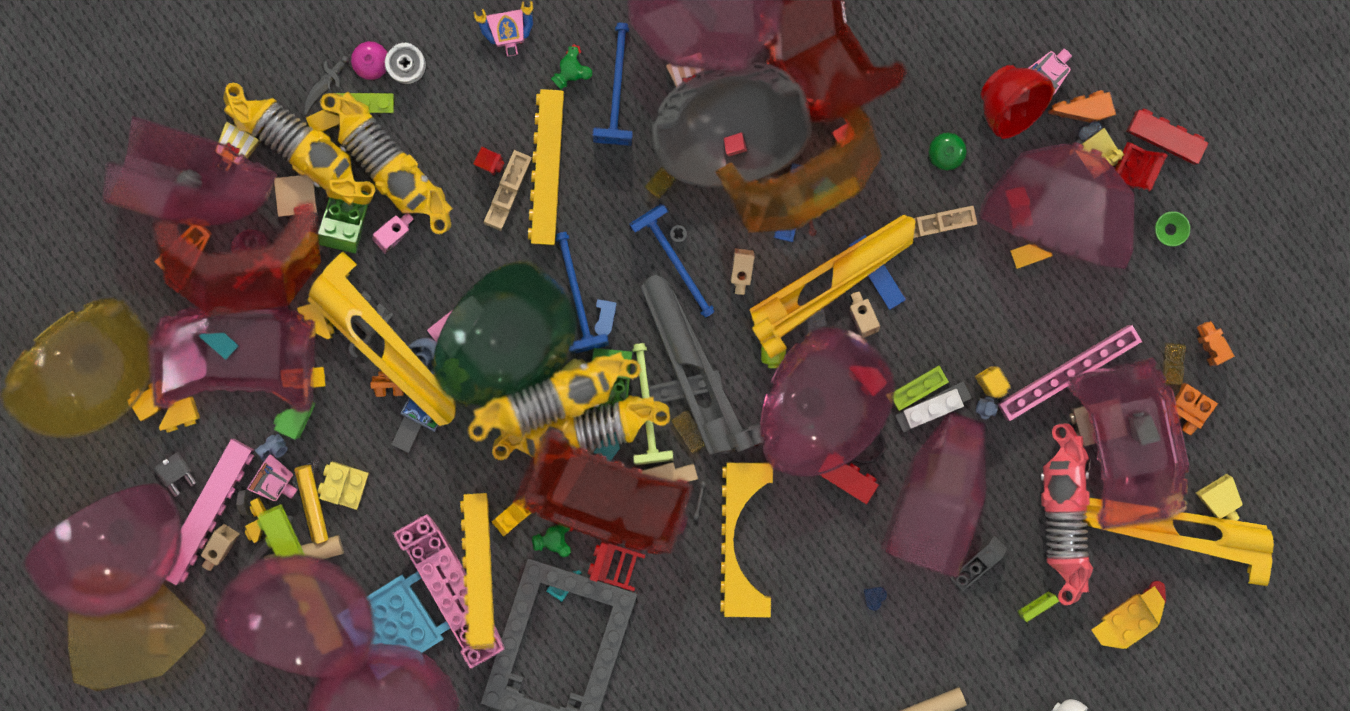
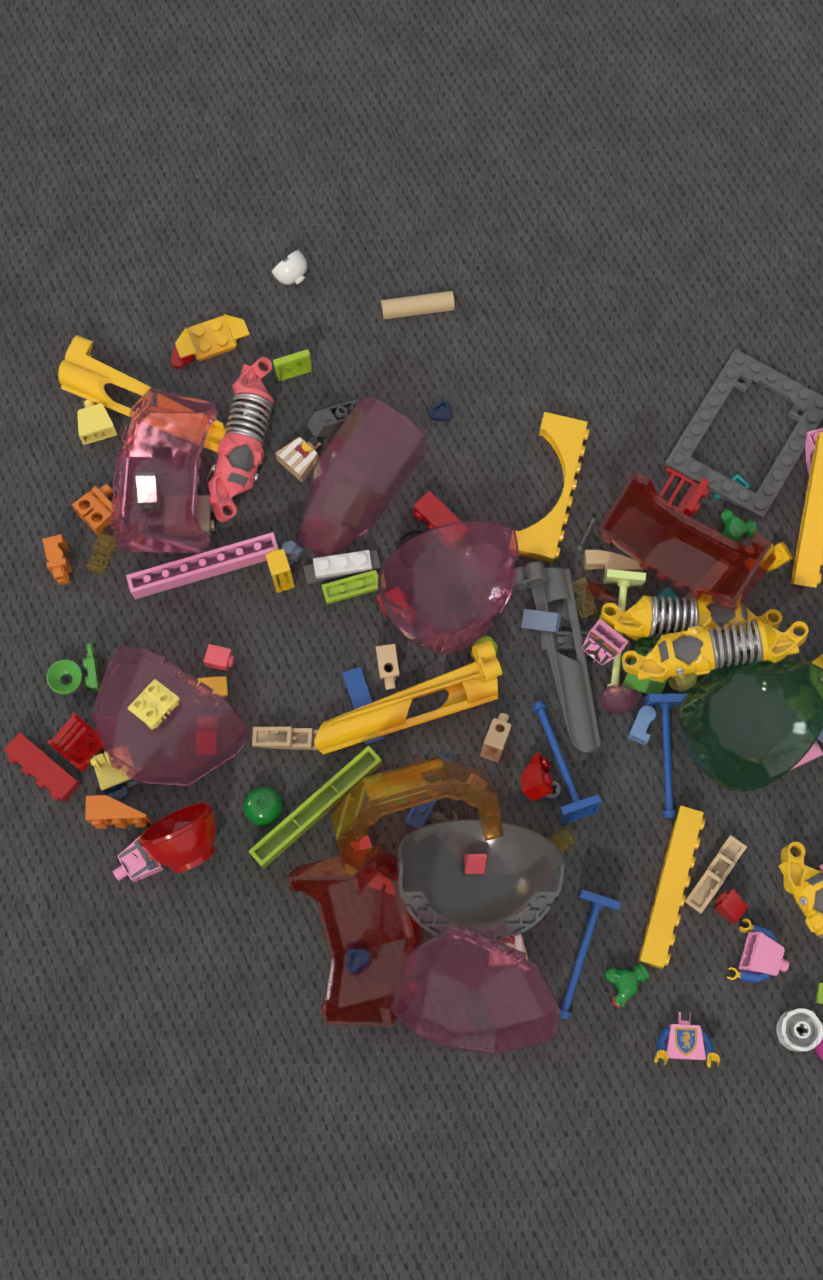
camera: 165 degrees left, 15 degrees down
(452, 122) = (760, 956): none -> bright pink torso
(633, 336) = (618, 699): none -> clear pink hat
(659, 384) = (603, 643): none -> bright pink torso
(674, 437) = (601, 592): none -> clear red tile
(695, 239) = (536, 778): none -> red slope
(725, 396) = (541, 620): none -> sand blue tile
(822, 30) = (357, 959): none -> clear blue tile
(897, 160) = (315, 807): none -> lime brick
(1004, 511) = (299, 457): none -> torso
(1028, 284) = (219, 658): none -> coral brick
(1075, 207) = (153, 704): none -> light yellow hinge
(1151, 249) = (91, 665): none -> bright green hinge

